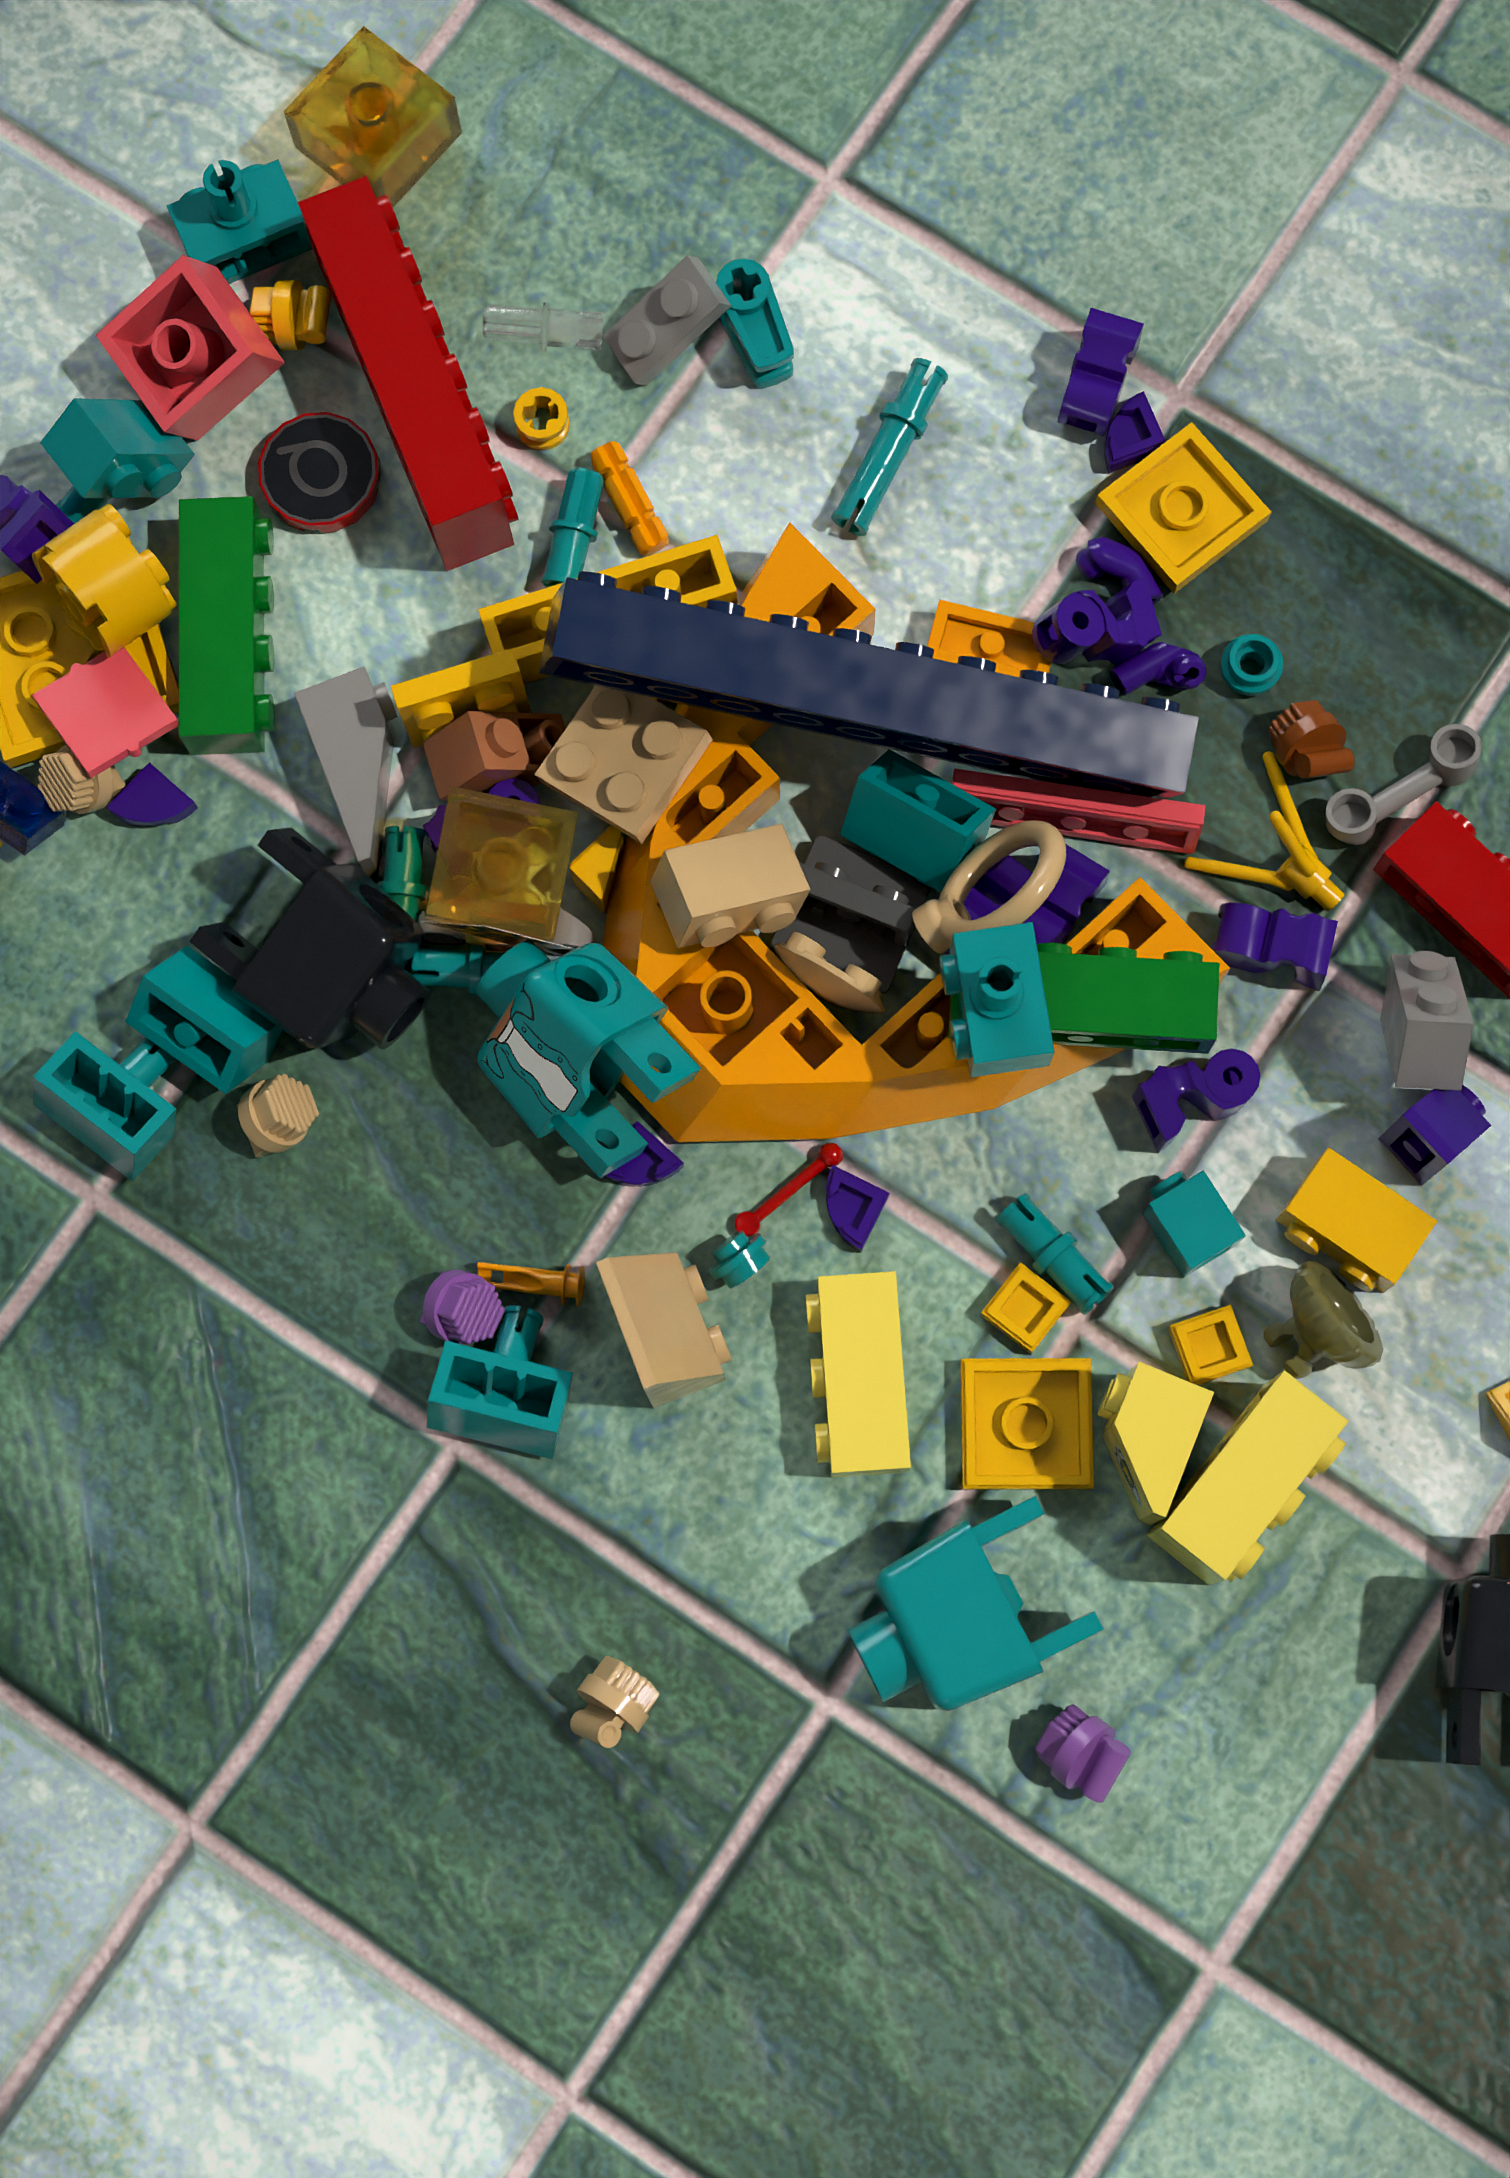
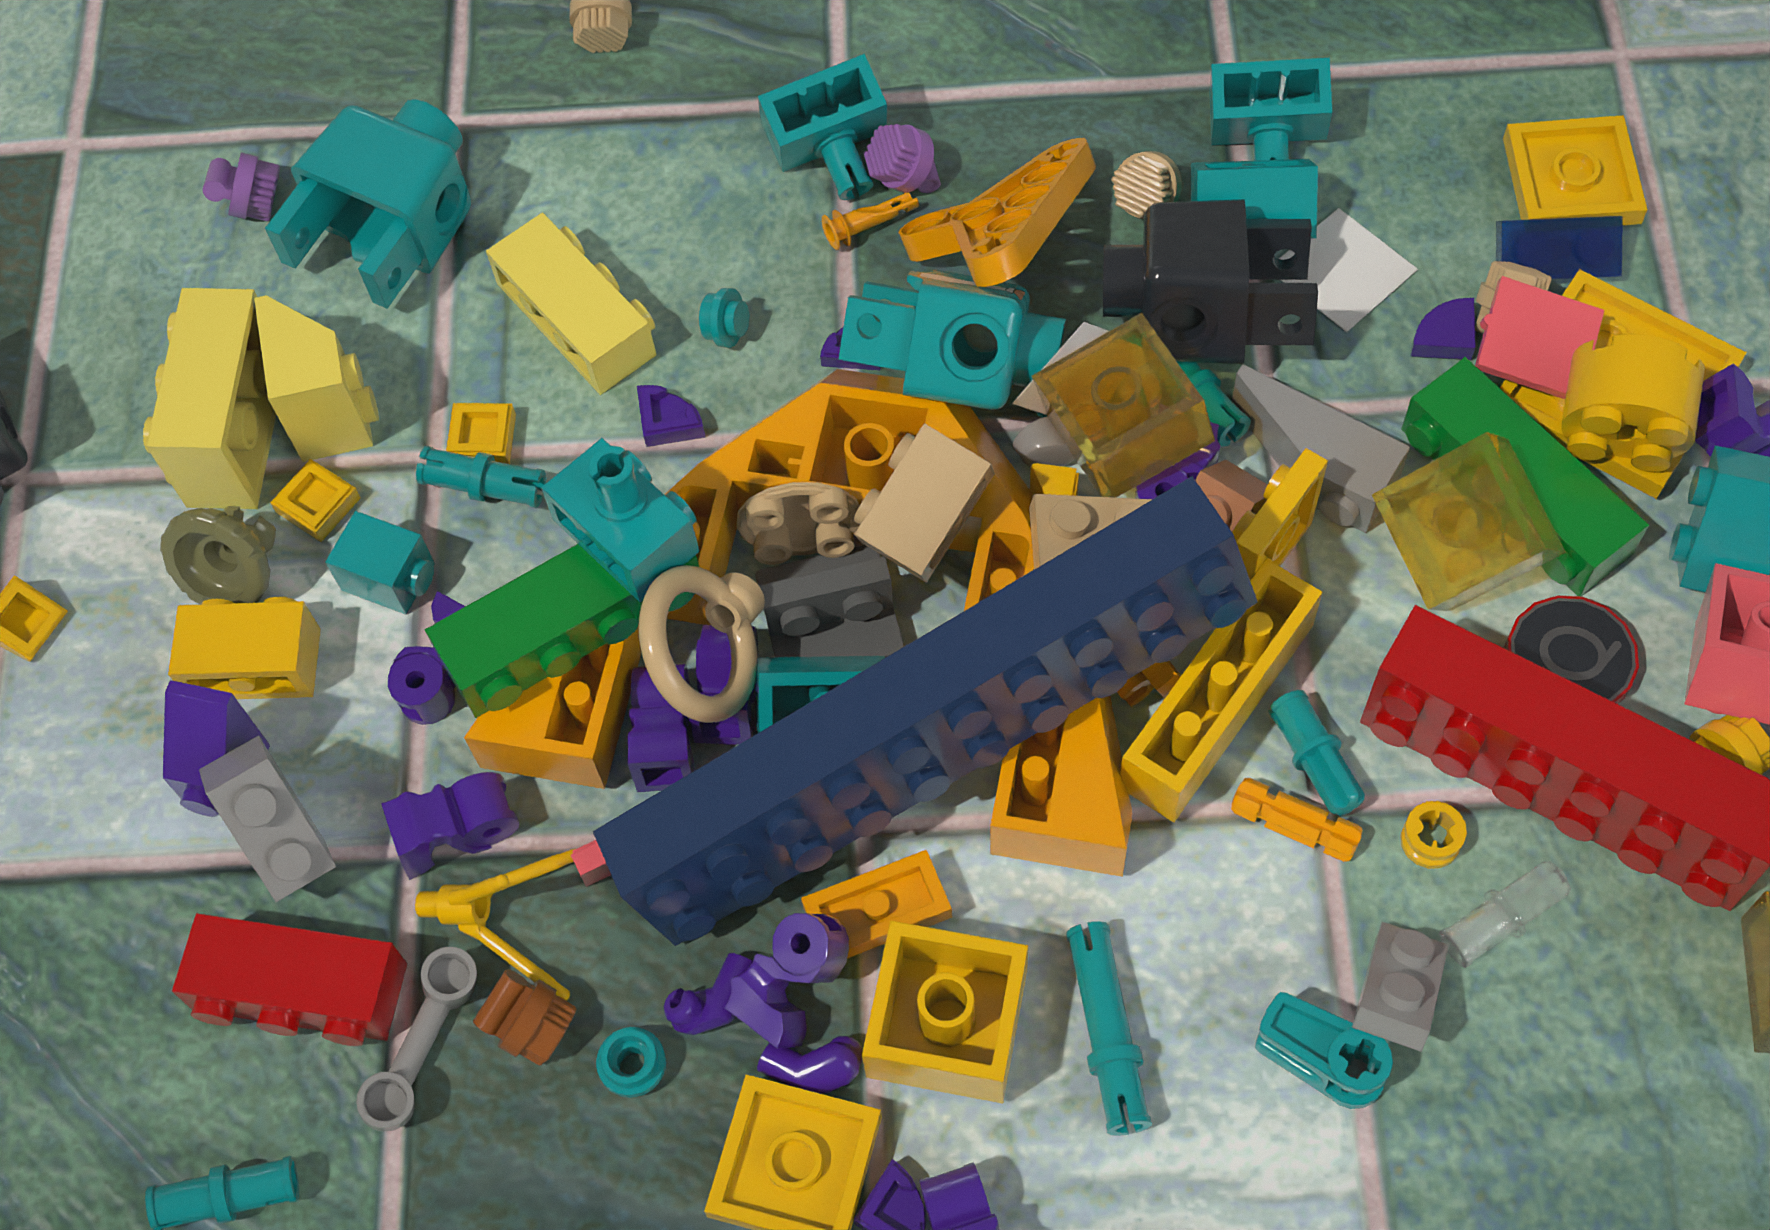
camera: 145 degrees right, 15 degrees down
(164, 914) = (1351, 269): none -> white sticker
(315, 588) = (1468, 523): none -> clear yellow brick
(412, 1162) = (1009, 220): none -> light orange beam
(663, 1324) = (740, 203): tan slope -> none
(749, 1222) = (739, 358): red hinge -> none
(1002, 520) = (945, 1011): none -> yellow brick
(1026, 1424) = (427, 361): yellow tile -> none

